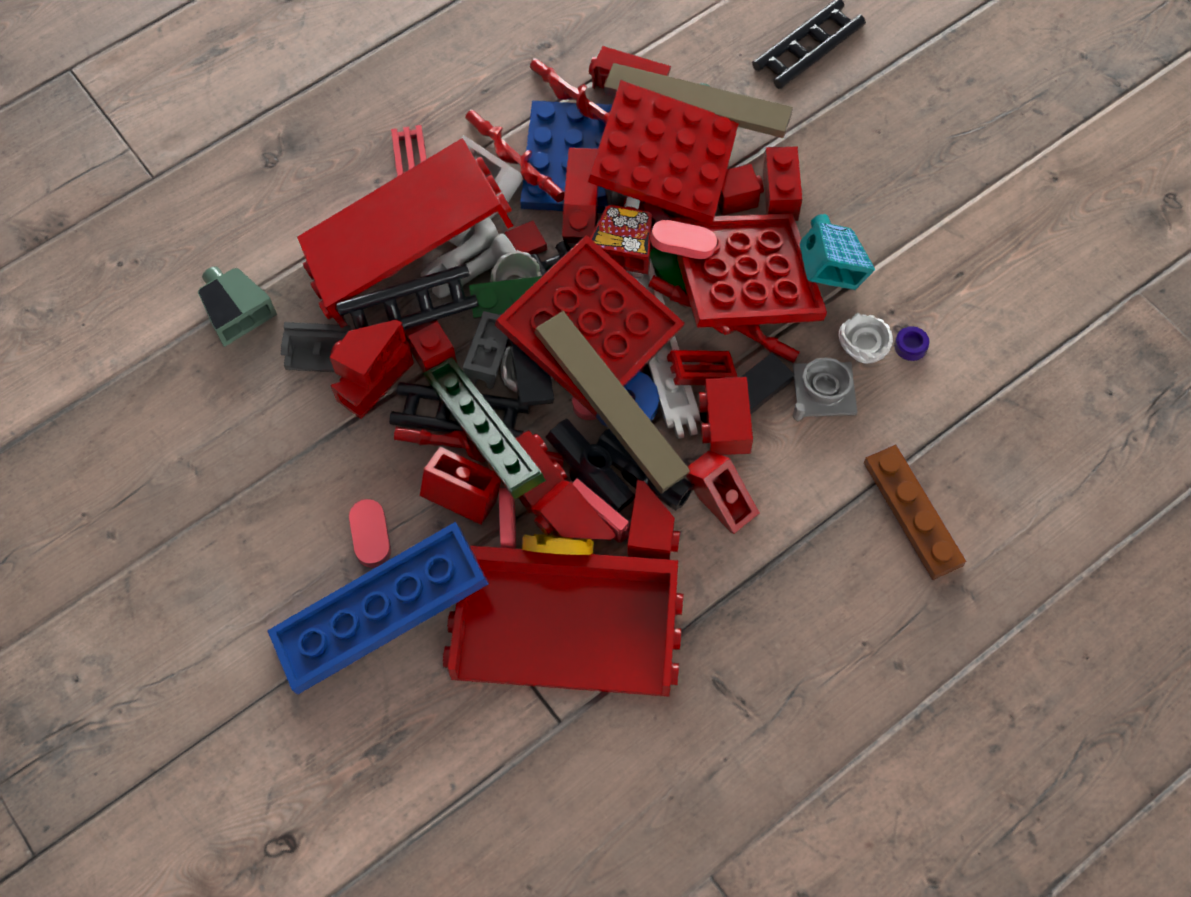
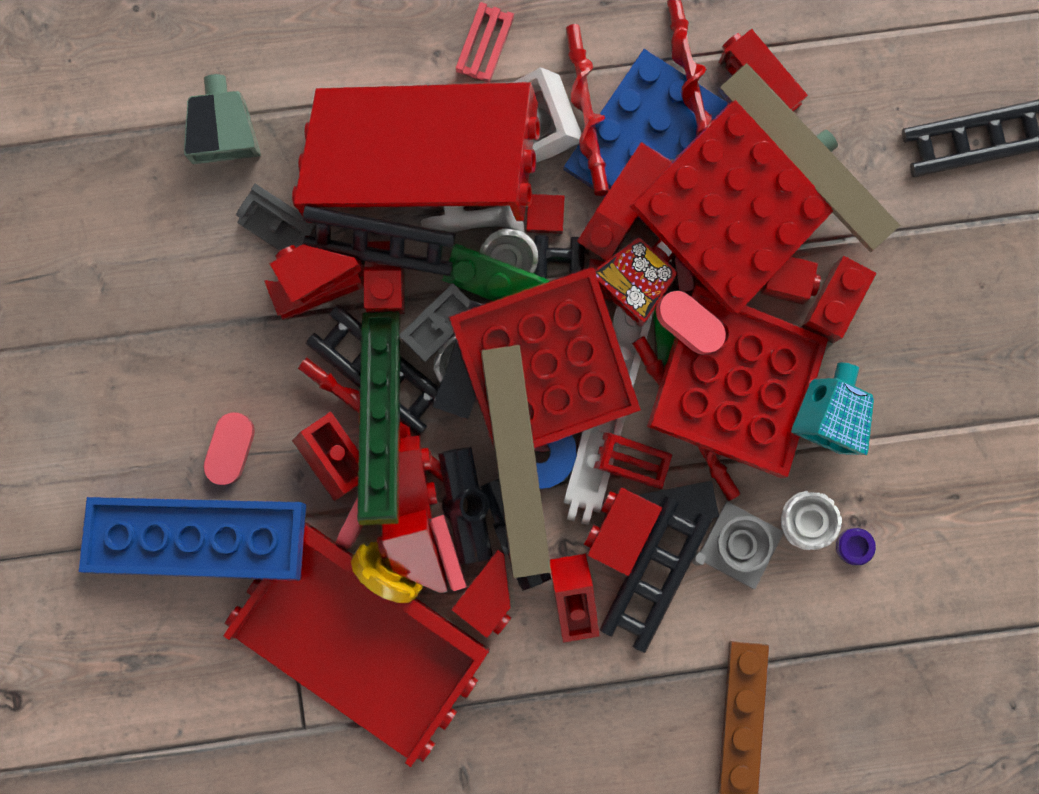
camera: 25 degrees right, 20 degrees up
(789, 455) = (660, 597): none -> black bar

